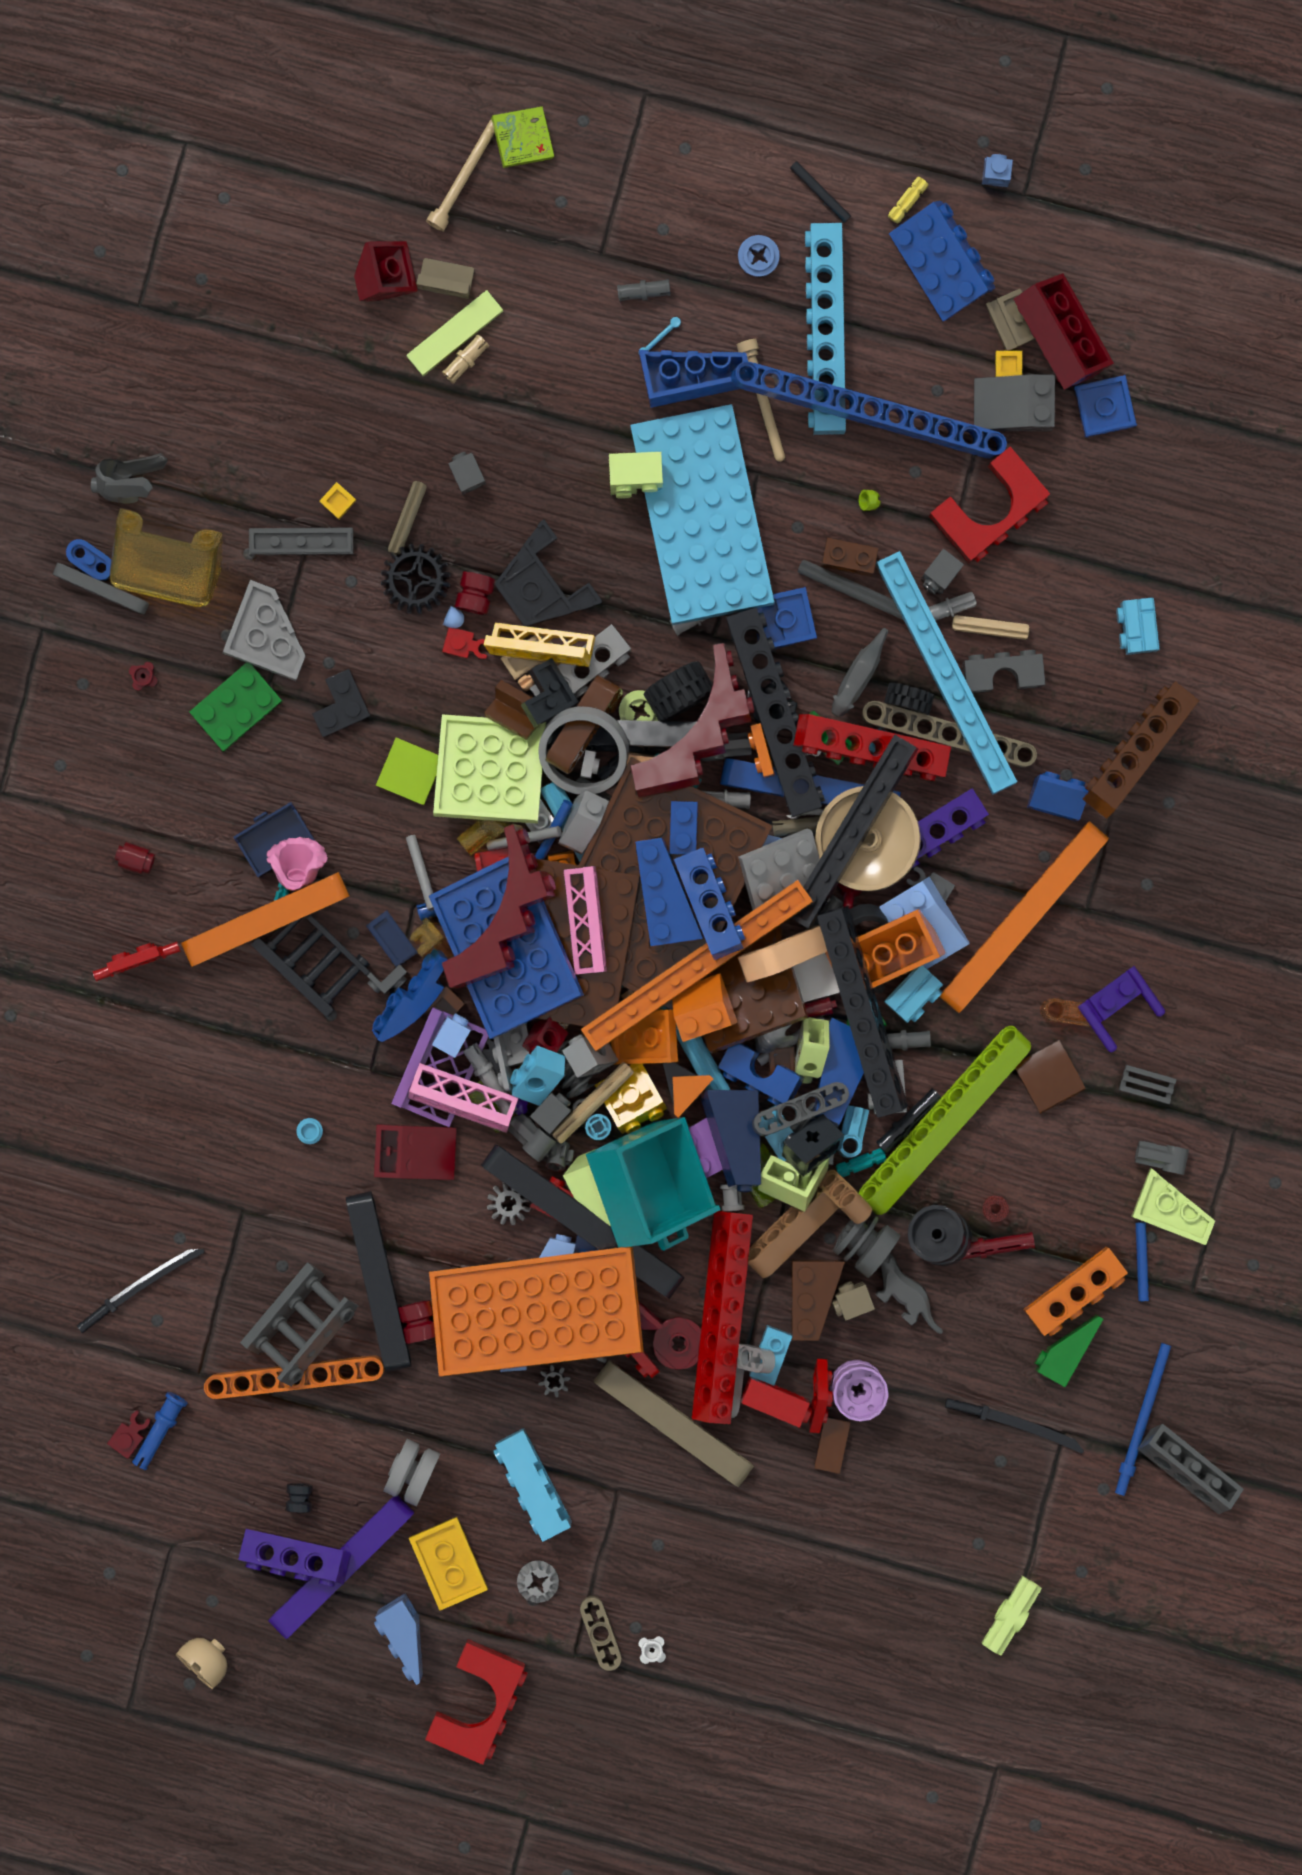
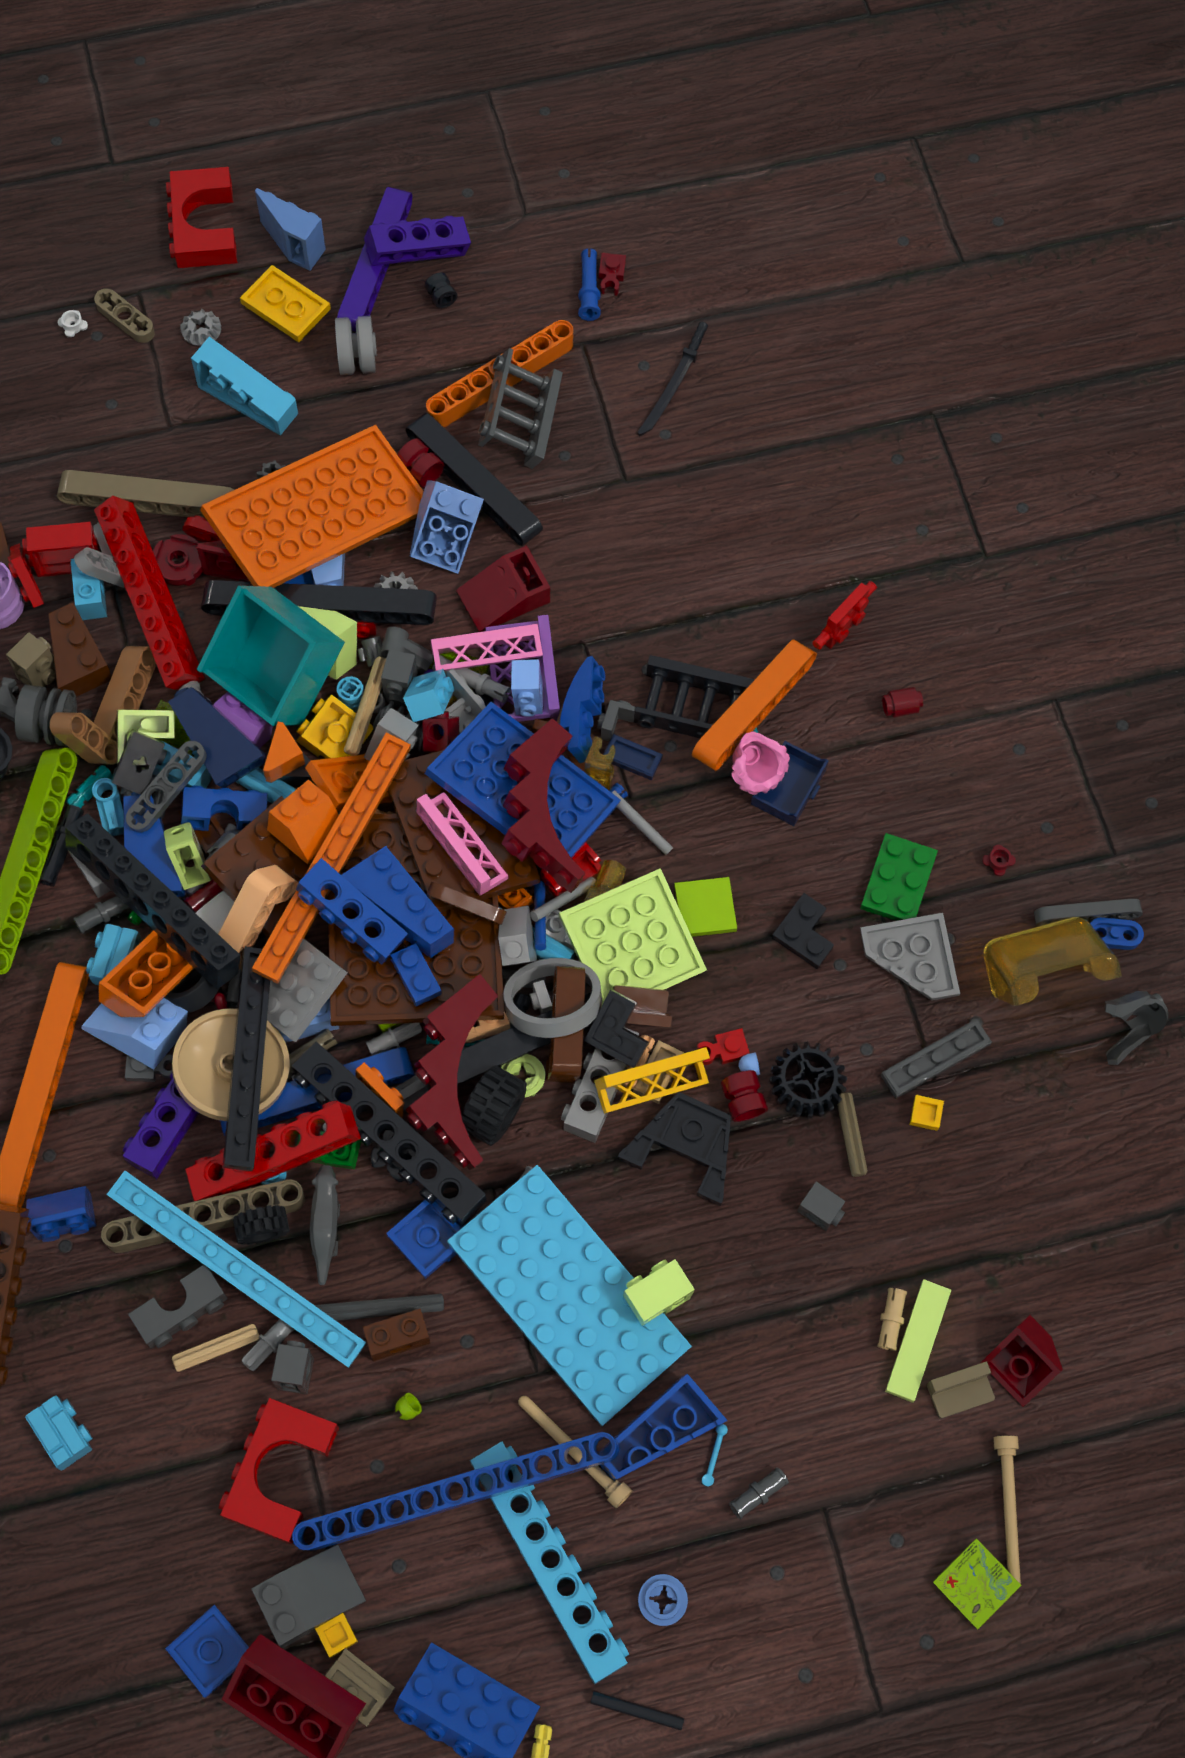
camera: 150 degrees right, 20 degrees down
(204, 1660) = (446, 140): tan cylinder -> none
(309, 1131) = (607, 566): medium azure plate -> none
(430, 1244) = (444, 525): none -> medium blue slope
(611, 862) = (466, 903): none -> reddish brown beam

